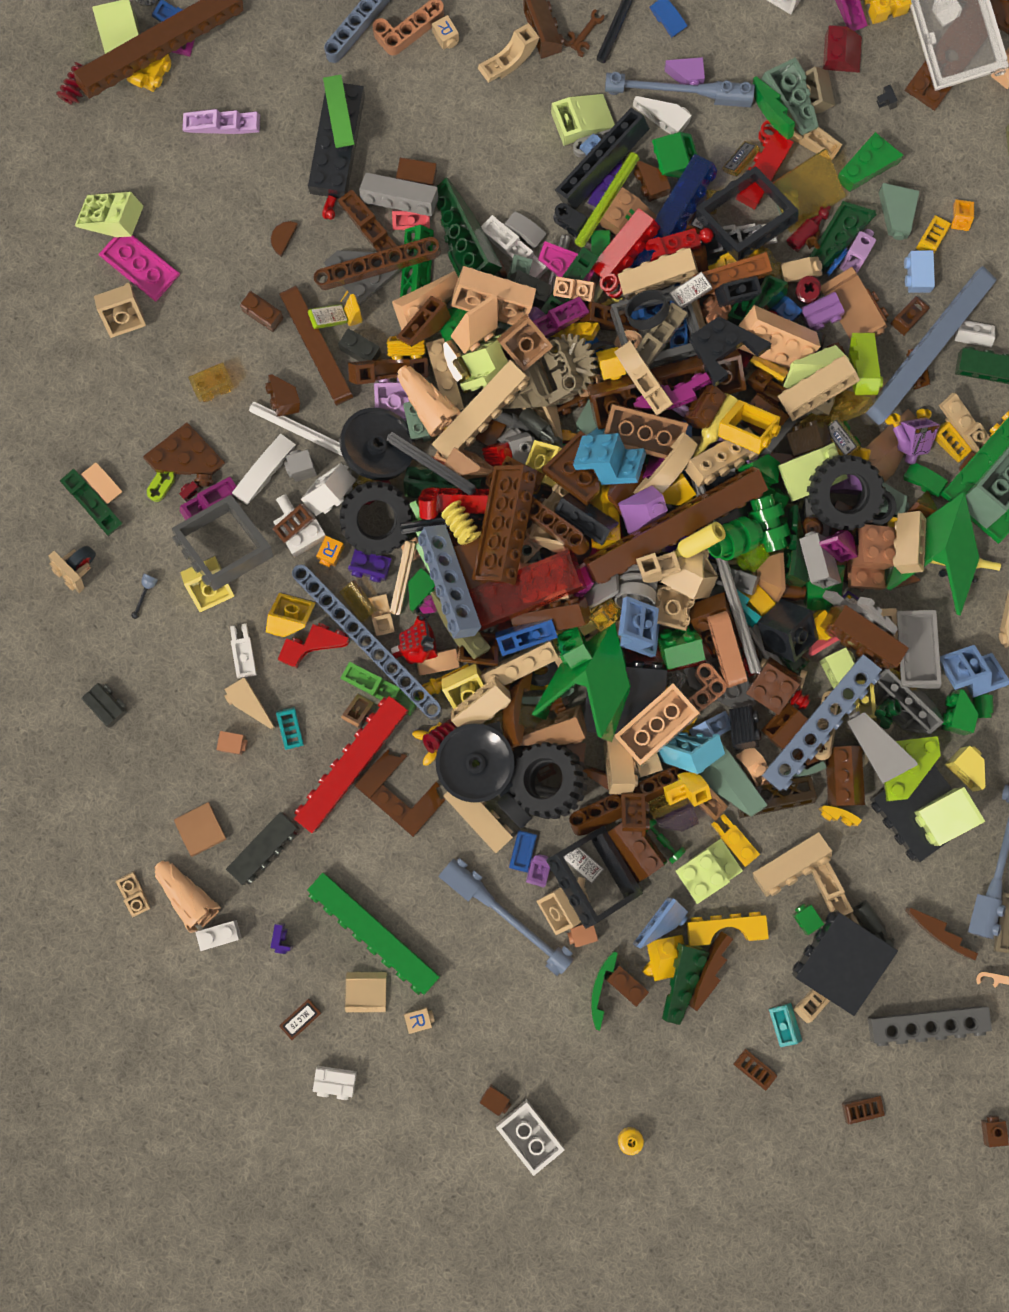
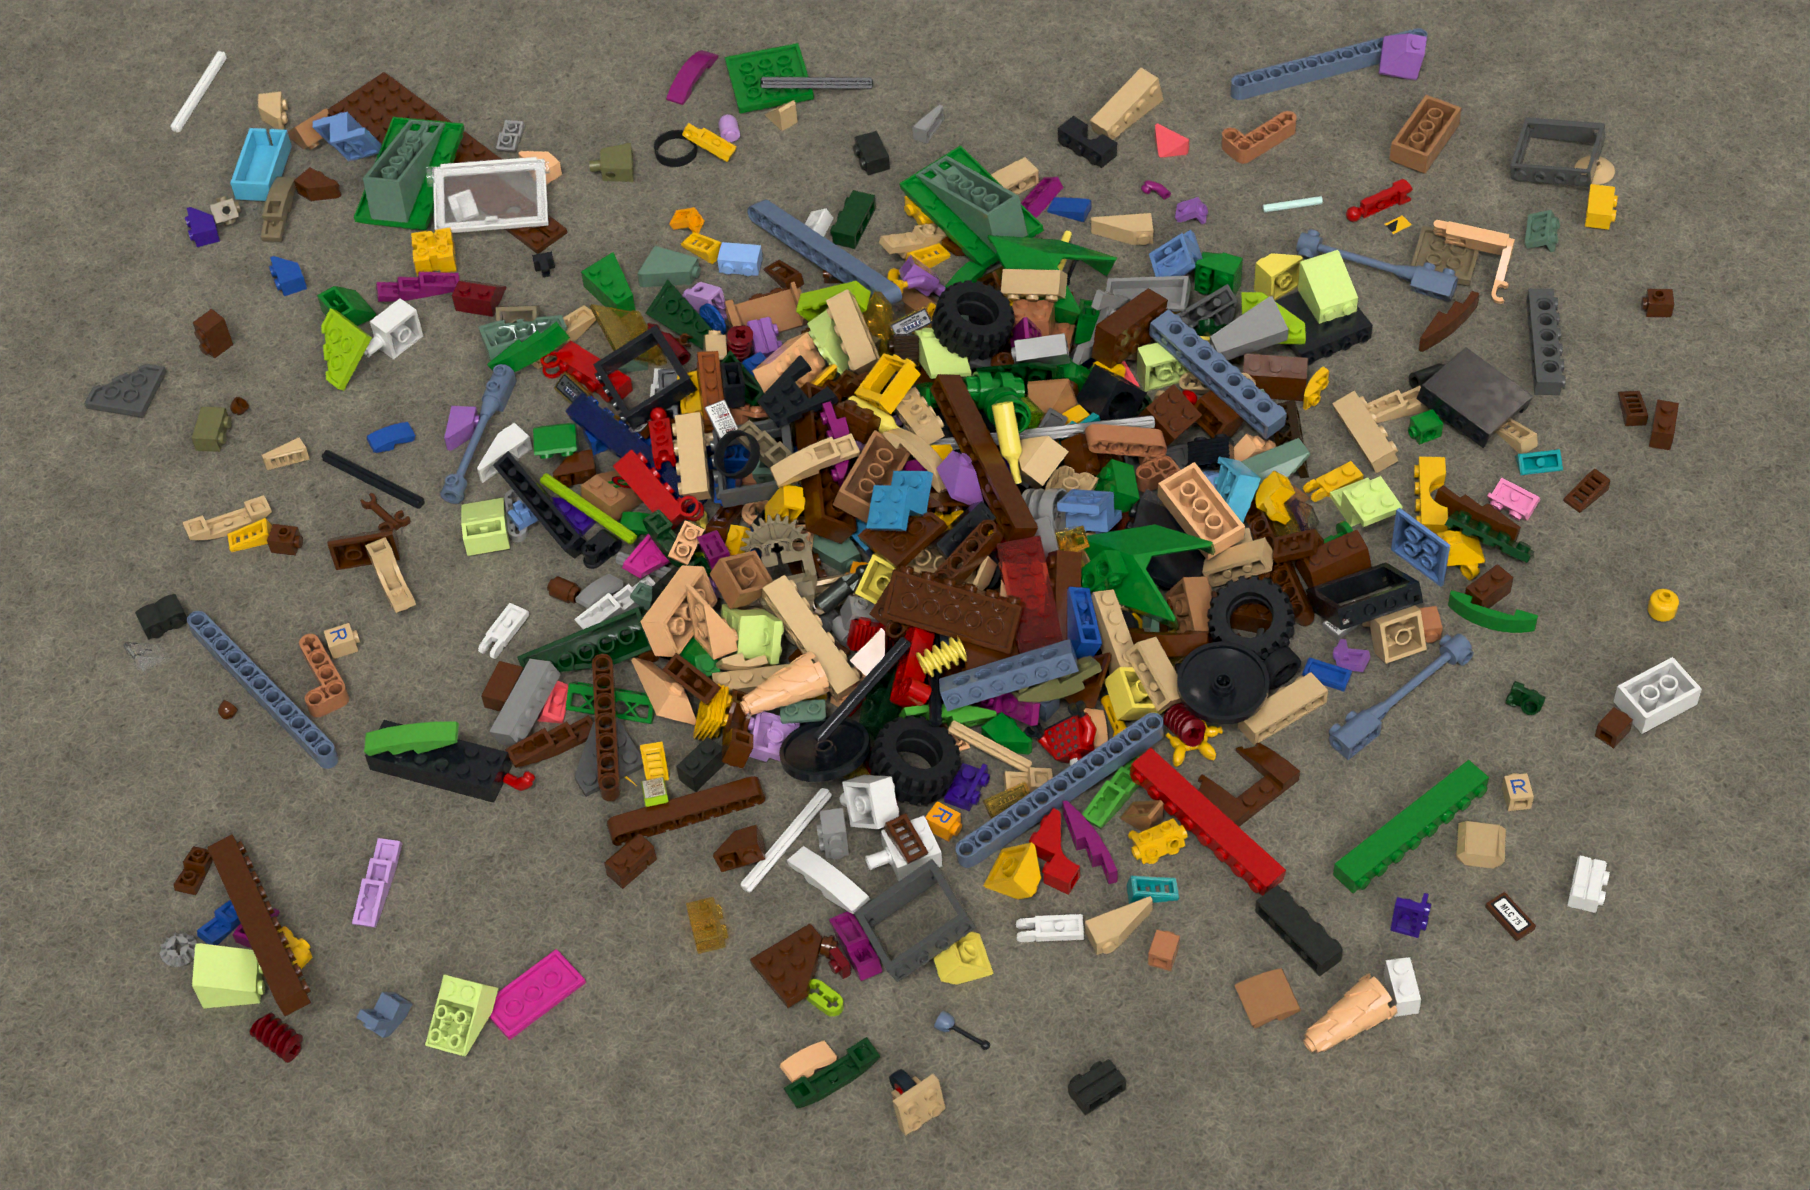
camera: 75 degrees left, 30 degrees down
(101, 158) = (386, 1015): none -> sand blue brick
(119, 310) = (590, 1008): tan piece -> none
(133, 894) = (1342, 1083): tan slope -> none
(282, 235) = (540, 835): reddish brown tile -> none
(329, 723) = (1157, 841): none -> yellow brick
(331, 666) = (1087, 838): none -> magenta slope
(476, 160) = (503, 629): none -> white hinge
(515, 1026) = (1527, 699): none -> dark green plate
(522, 199) = (563, 590): none -> reddish brown brick
(655, 568) = (1028, 473): tan brick -> none
(733, 1003) = (1513, 499): none -> bright pink bracket
(841, 1139) = (1663, 424): none -> reddish brown brick
(895, 598) = (1086, 321): none -> green slope

